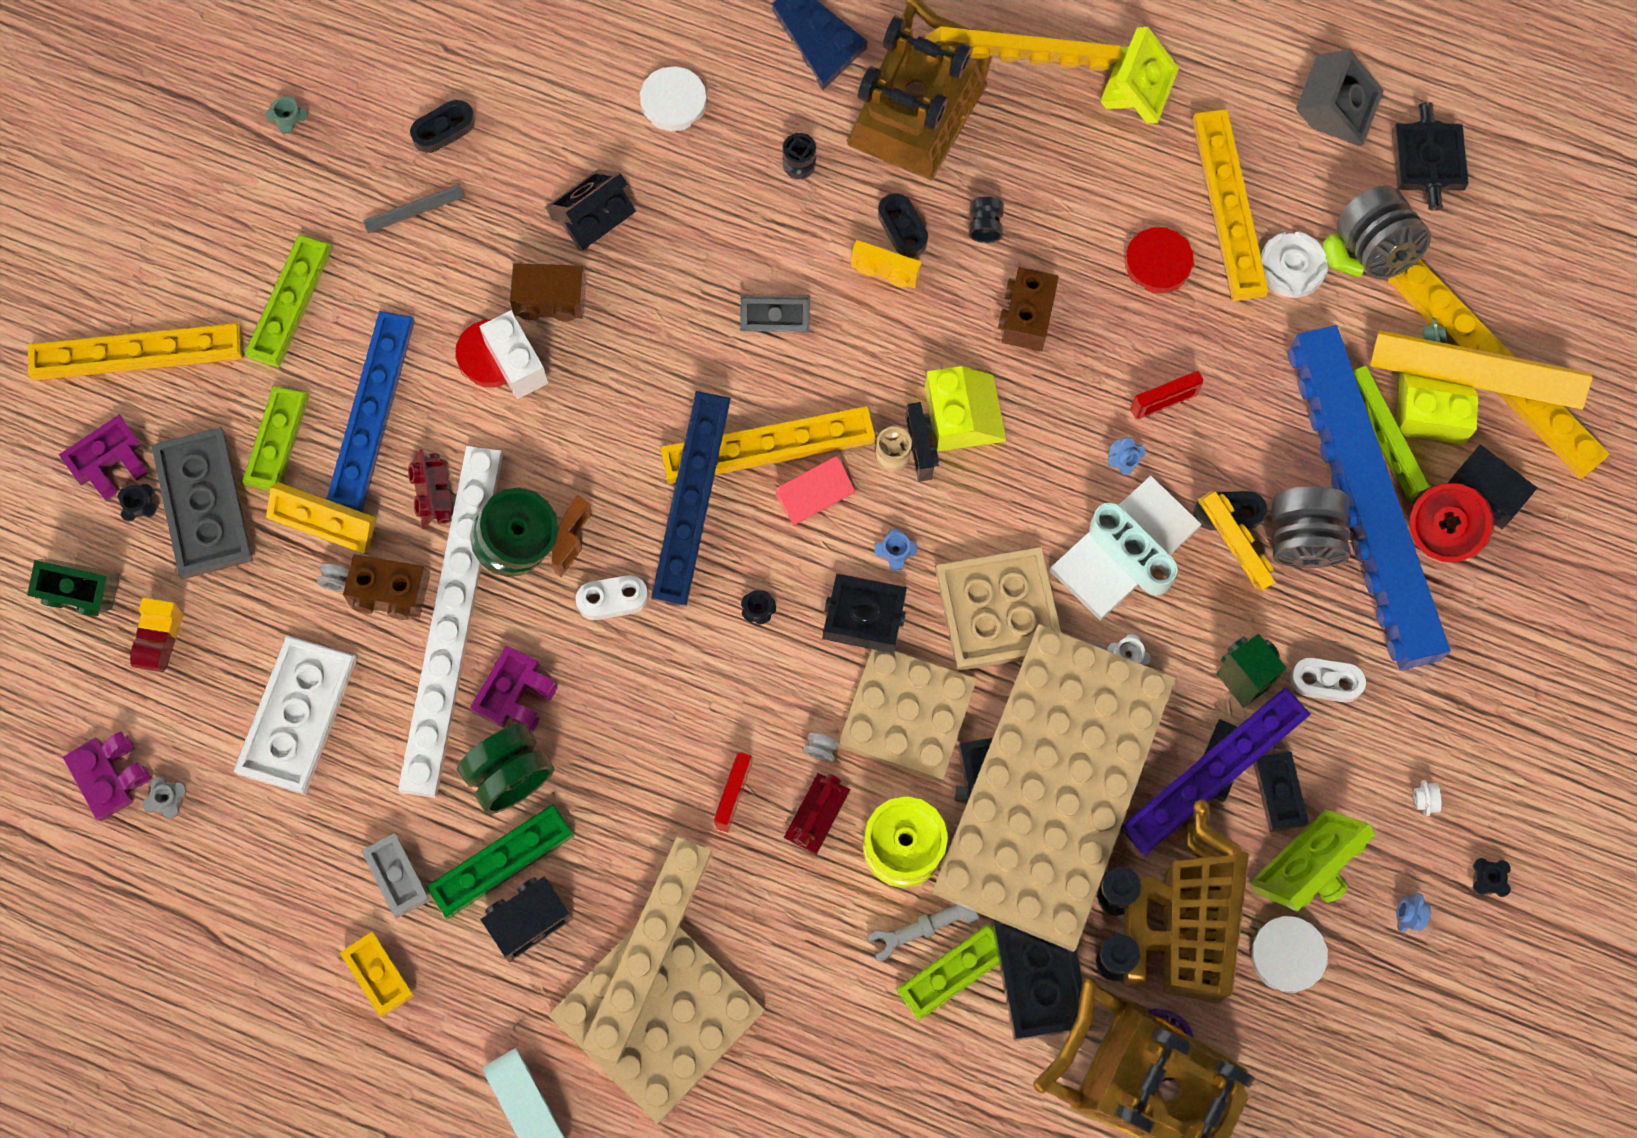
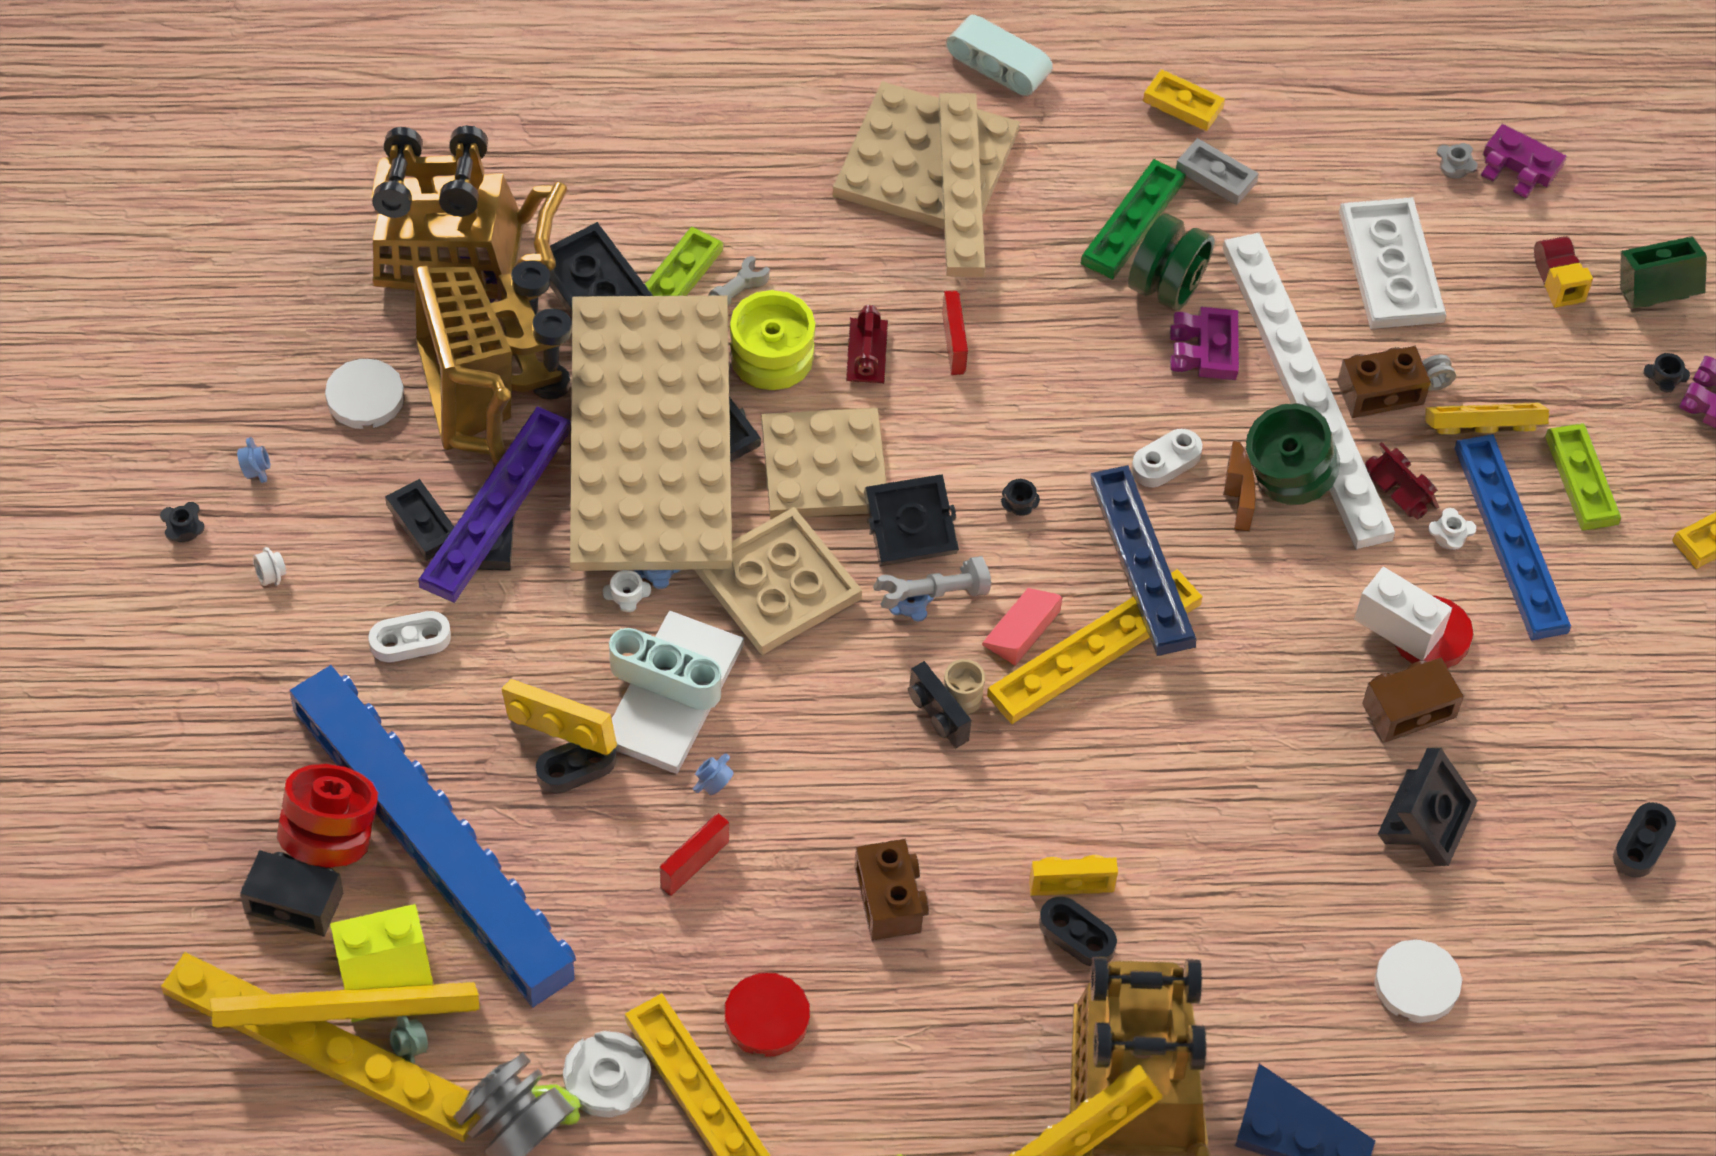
camera: 155 degrees right, 15 degrees down
(201, 503) = (1607, 391): dark grey plate -> none
(288, 301) = (1668, 607): lime tile -> none
(413, 208) = (1612, 747): dark grey bar -> none
(421, 440) = (1448, 537): none -> white plate
(525, 918) = (1082, 177): black brick -> none
(774, 312) = (1167, 791): dark grey slope -> none
(795, 163) = (1238, 969): black wheel -> none
(821, 747) = (892, 397): light grey bush -> none
(836, 541) = (974, 578): none -> light grey piece
(963, 408) = (909, 756): neon yellow slope -> none
(986, 219) = (986, 971): black wheel -> none
(1250, 668) = (495, 596): dark green brick -> none
(1310, 527) = (482, 755): flat silver wheel -> none
(1314, 862) = (371, 455): lime plate -> none
(1390, 439) = (429, 905): lime tile -> none

